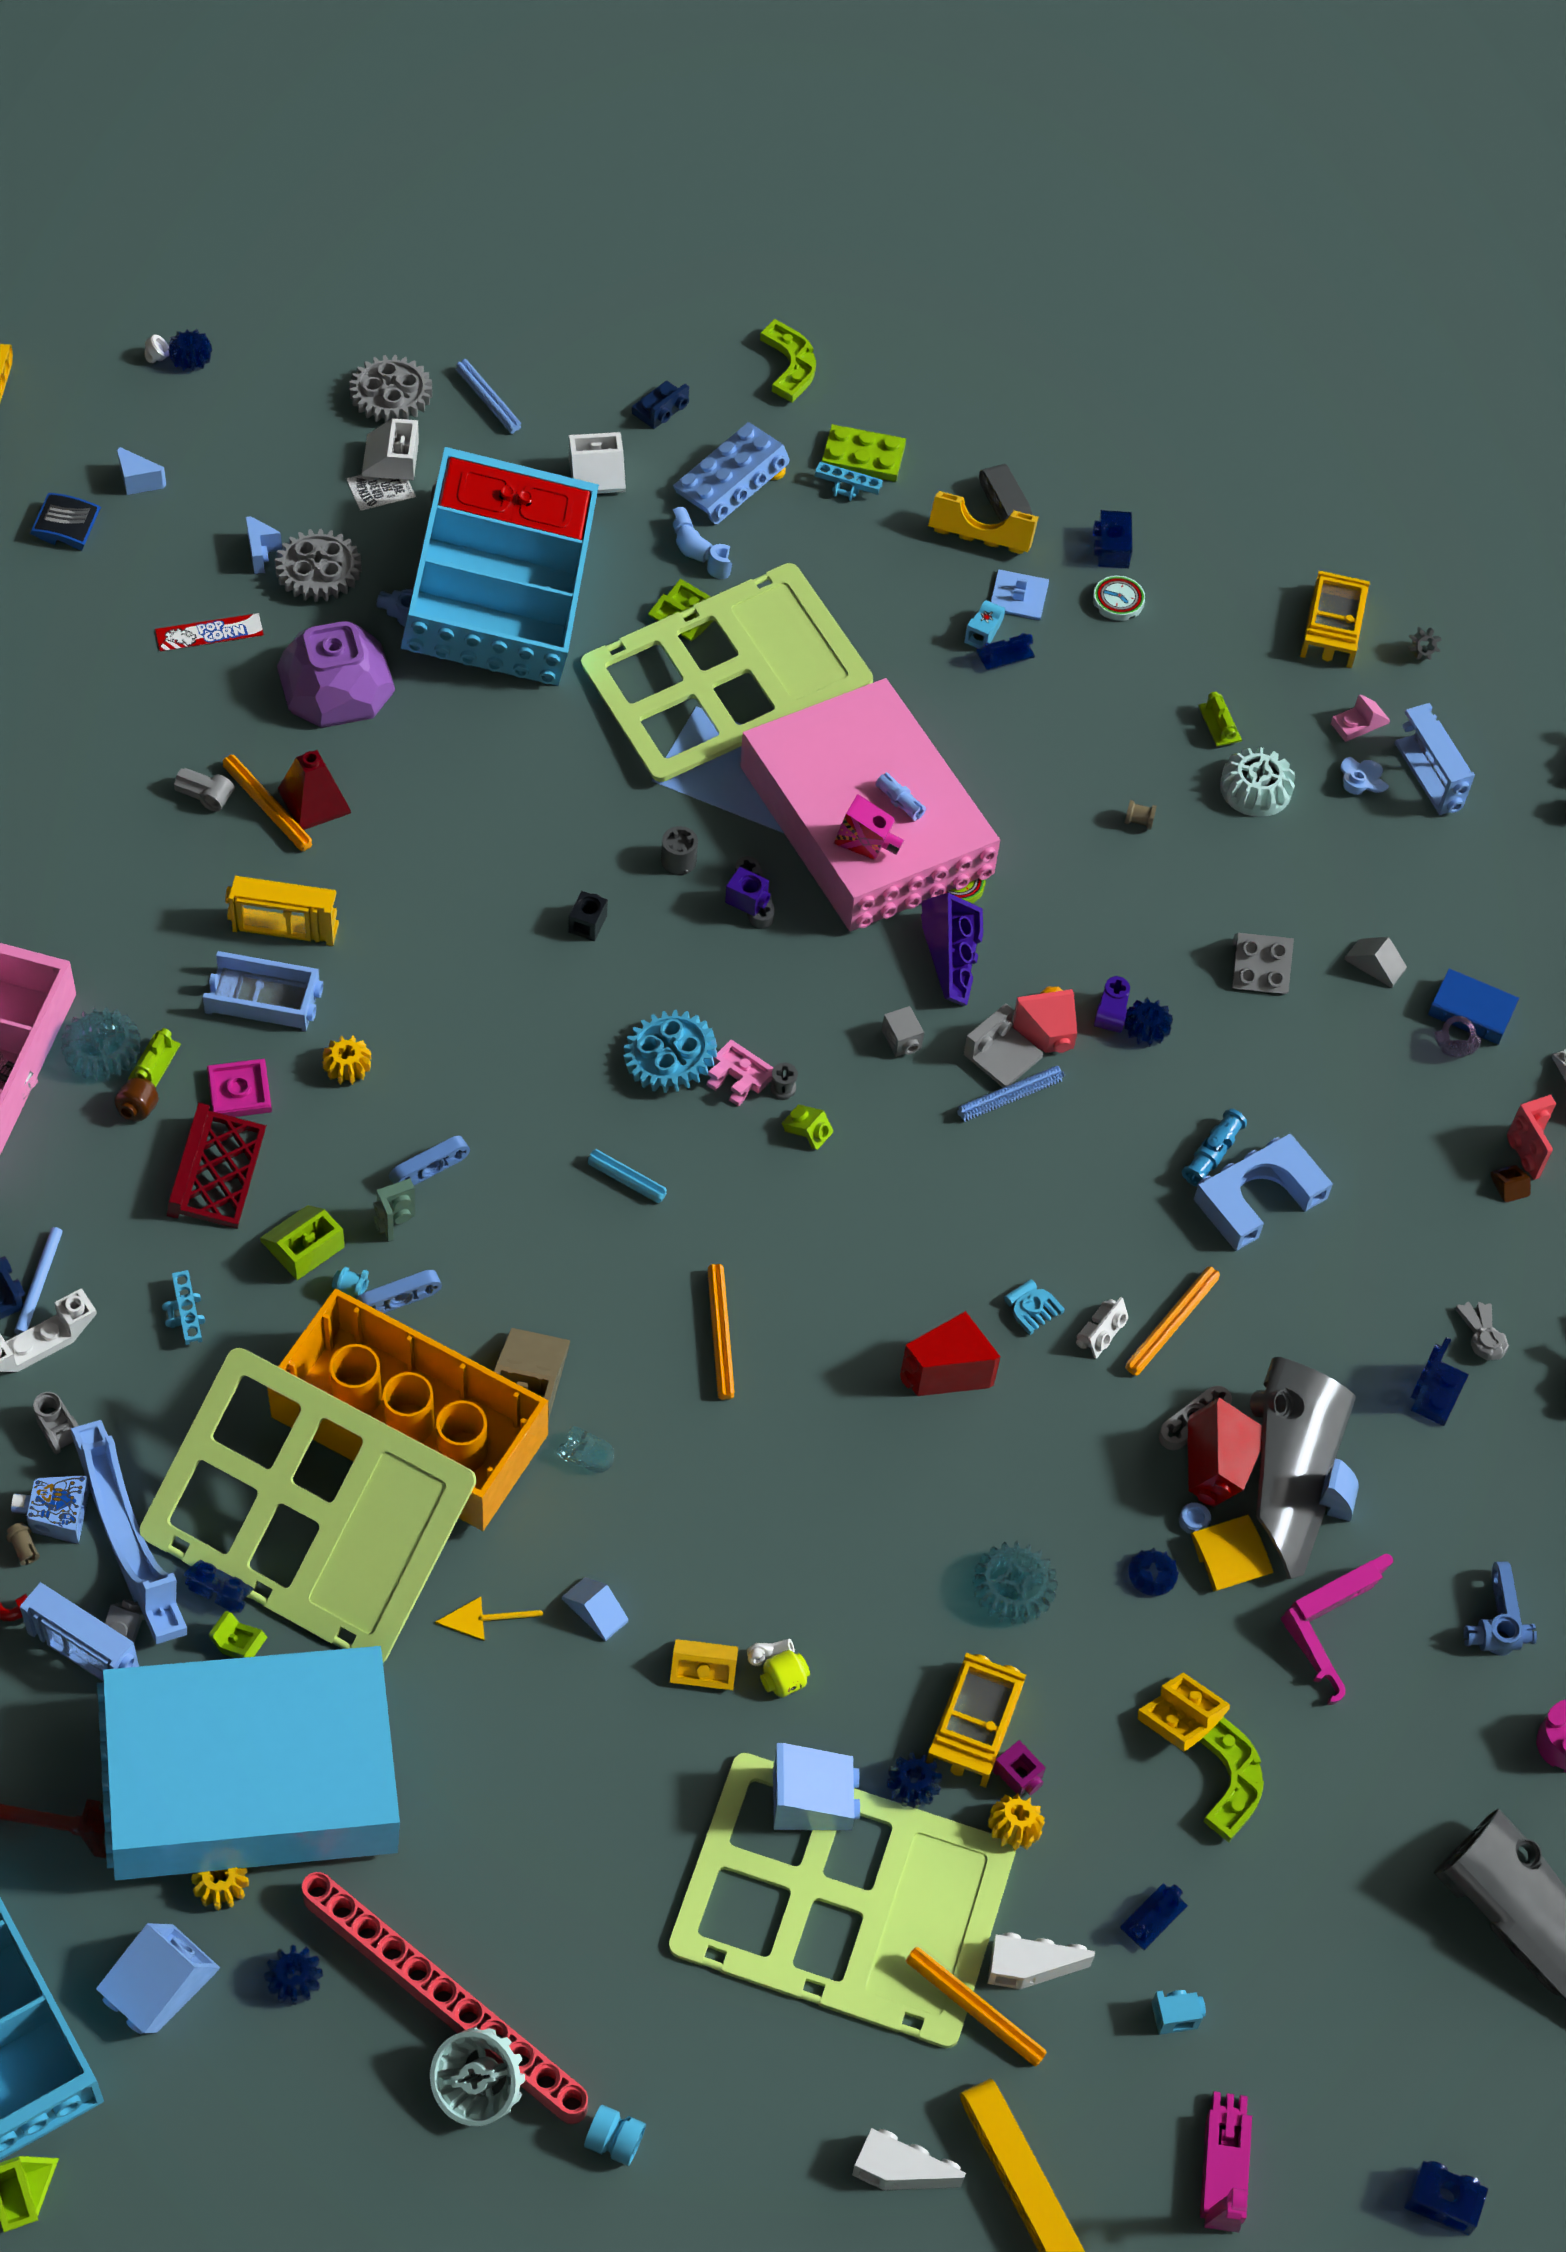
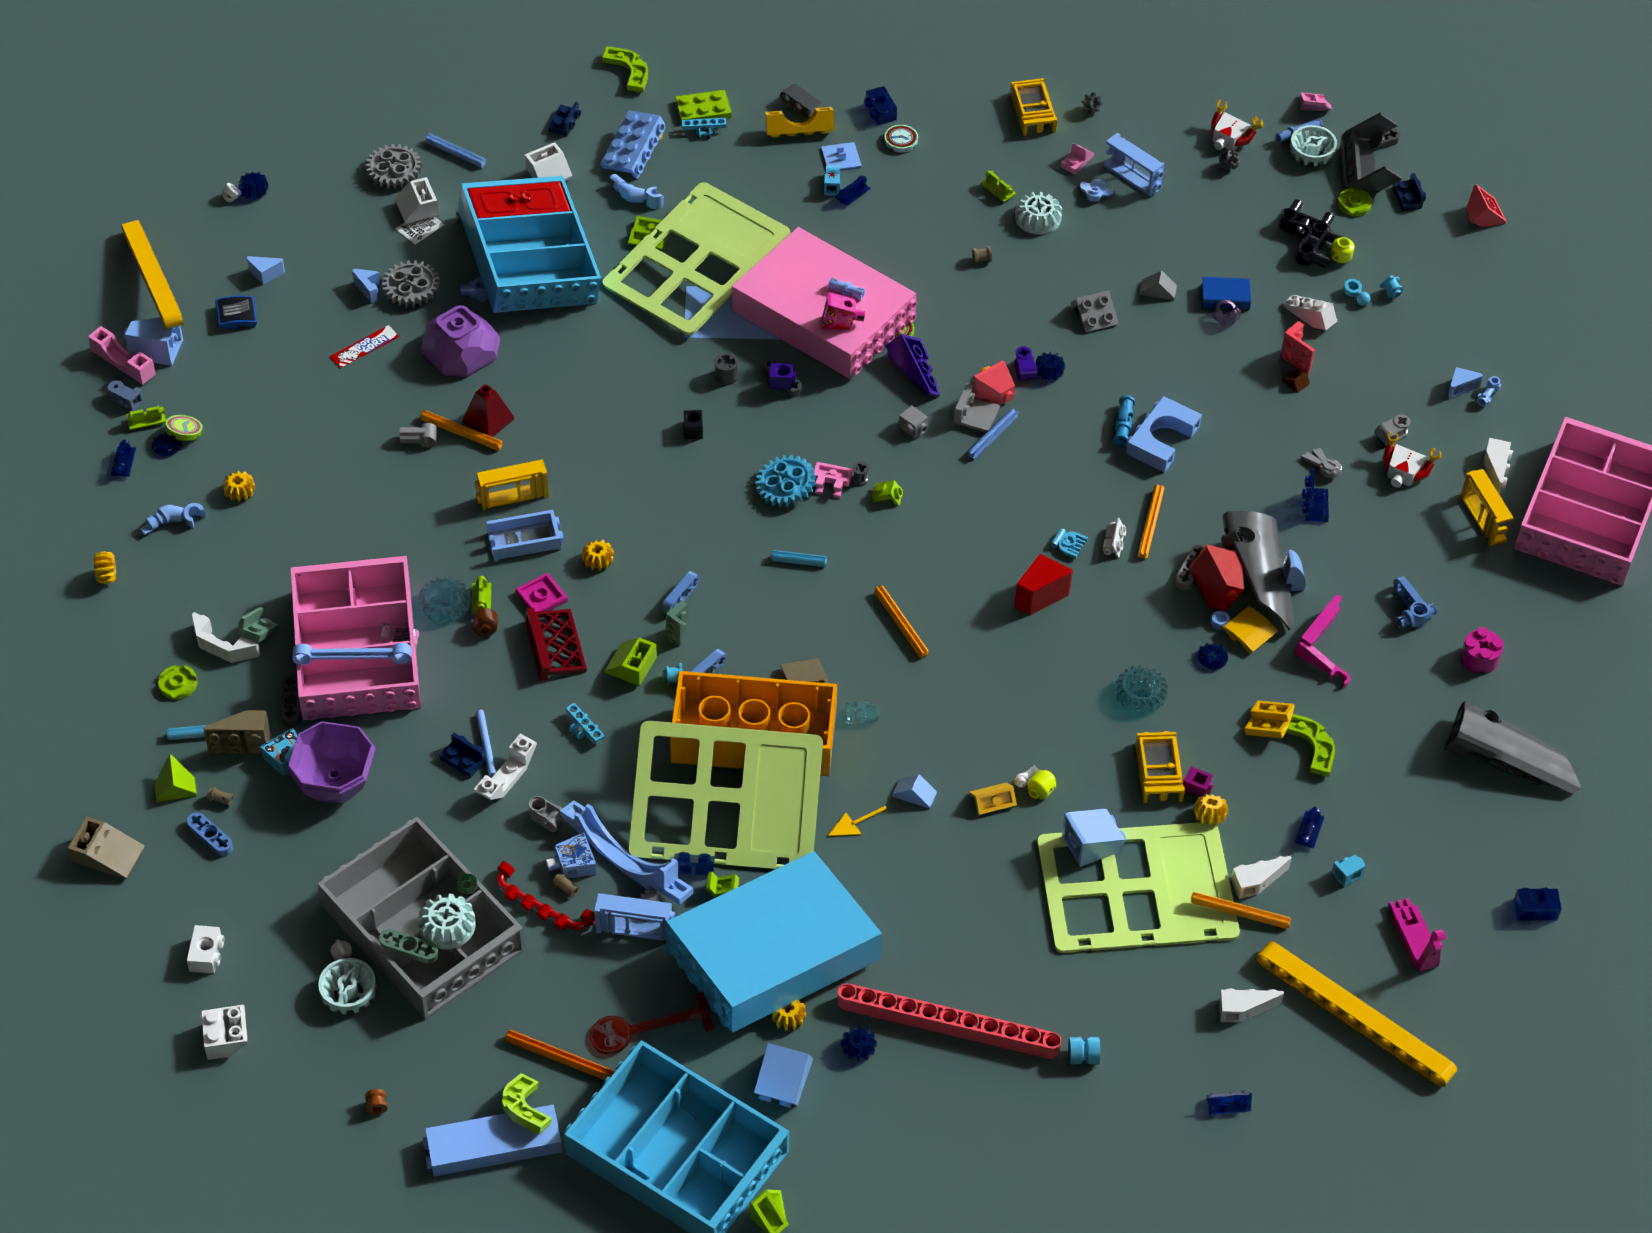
camera: 20 degrees left, 5 degrees down
(458, 2091) = (978, 1059): light aqua gear -> none
(925, 1786) = (1143, 811): clear blue gear -> none

